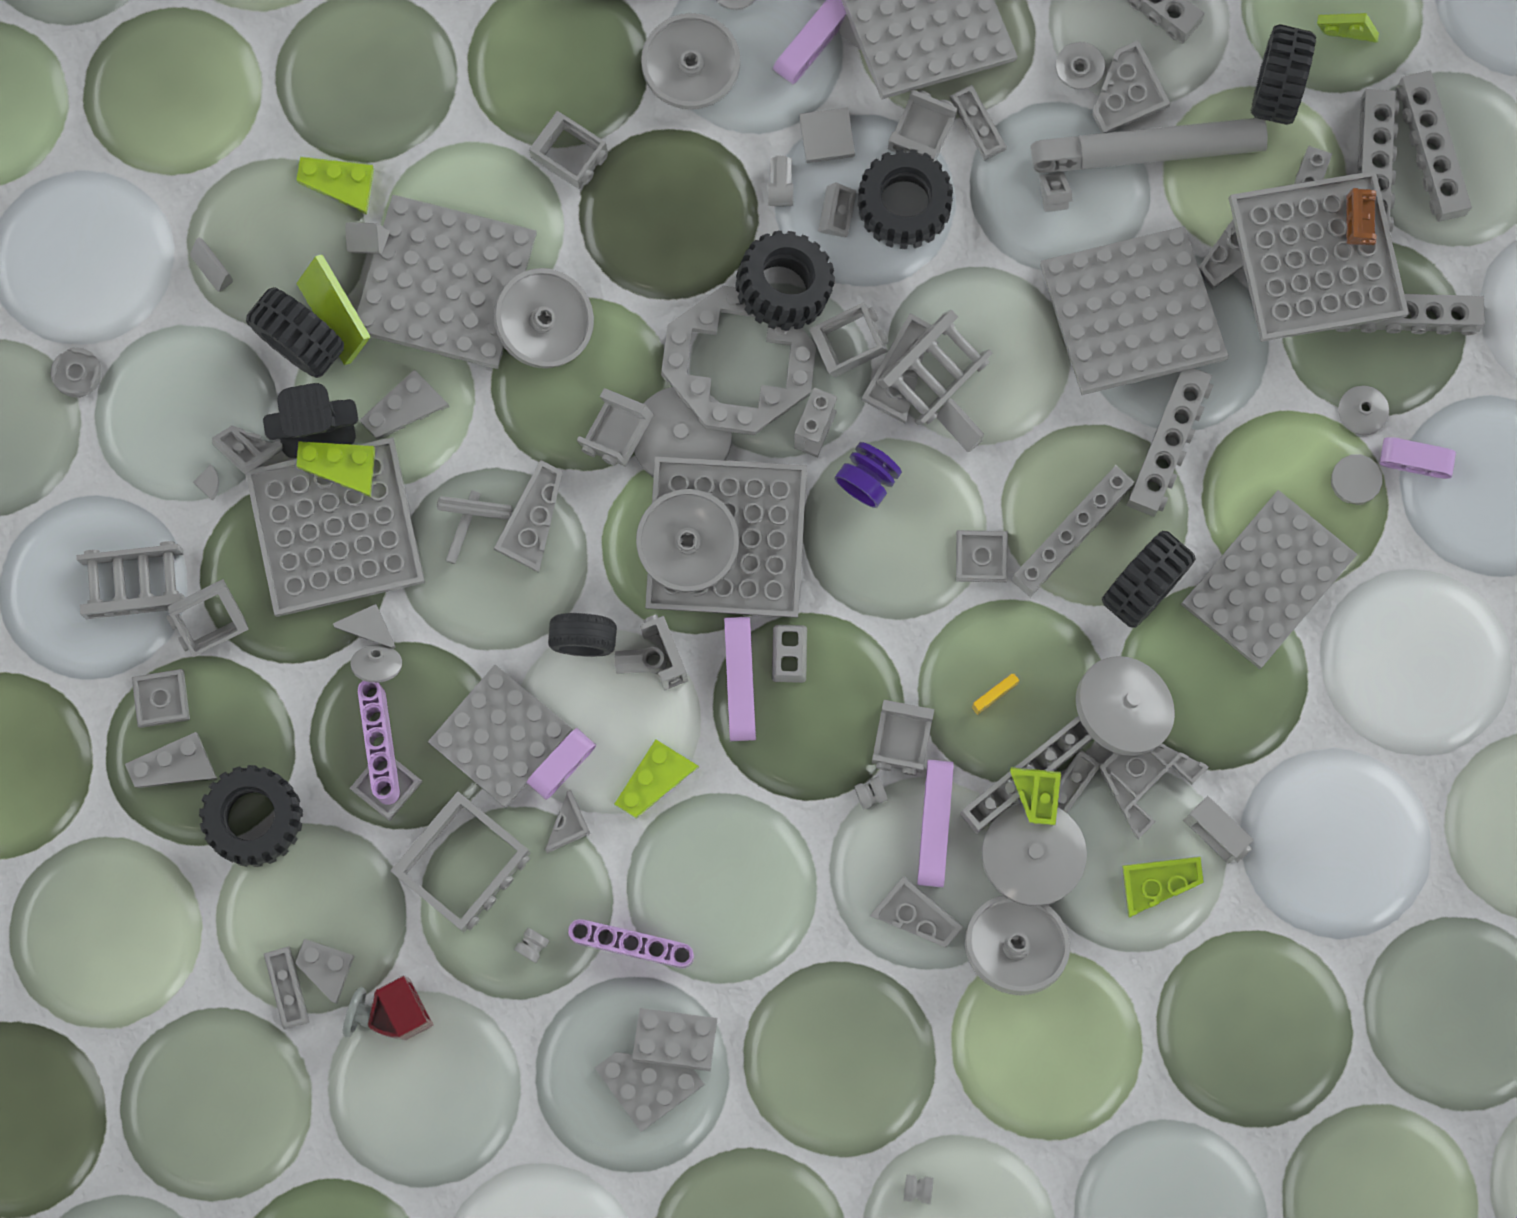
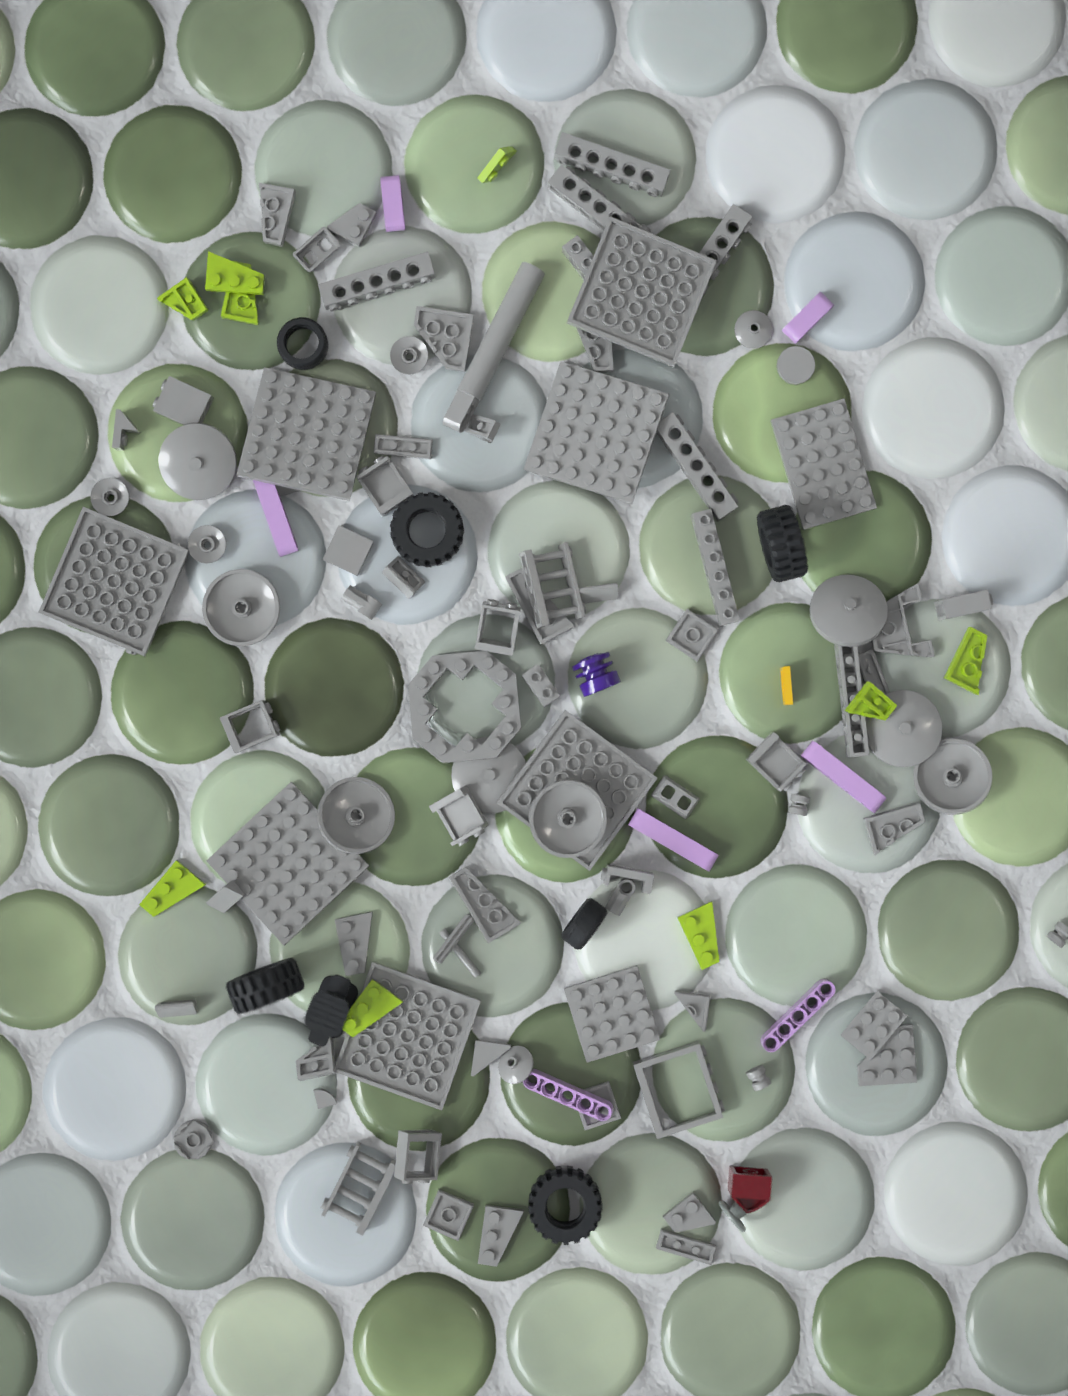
camera: 60 degrees left, 10 degrees up
(333, 307) = (260, 948): lime tile -> none
(561, 763) = (655, 987): lavender beam -> none
(797, 255) = (427, 621): black tyre -> none
(1283, 74) = (507, 230): black tyre -> none
(1361, 217) = (636, 248): dark orange hinge -> none

